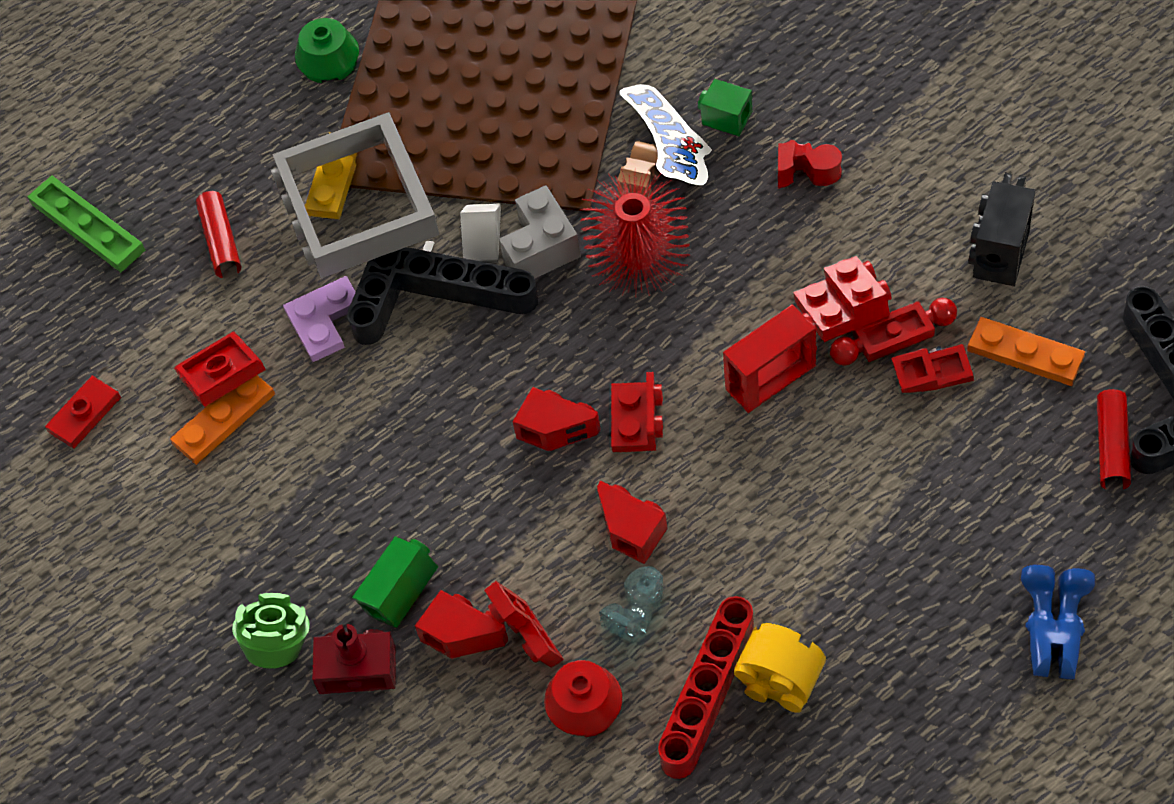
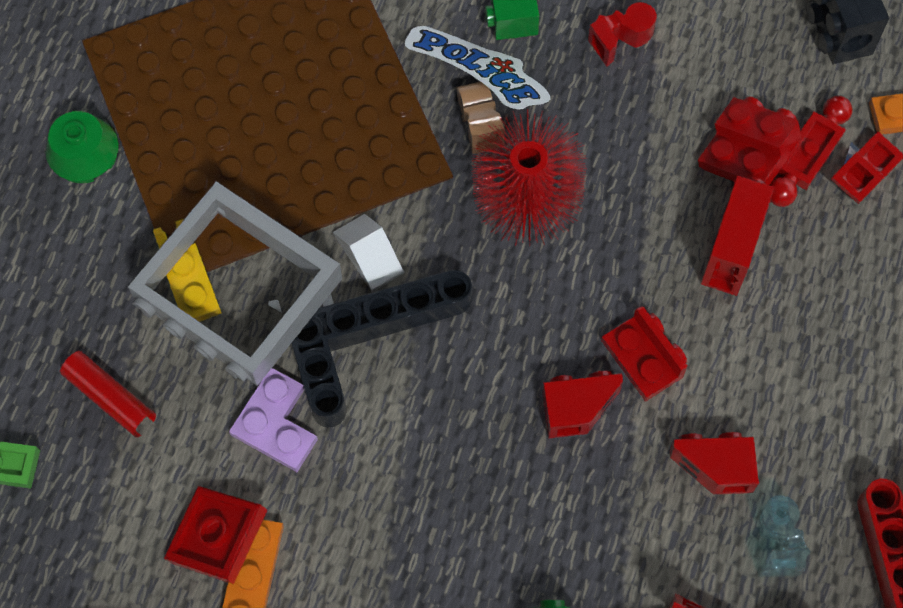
camera: 40 degrees left, 10 degrees up
(546, 235) = (440, 223): light grey brick -> none

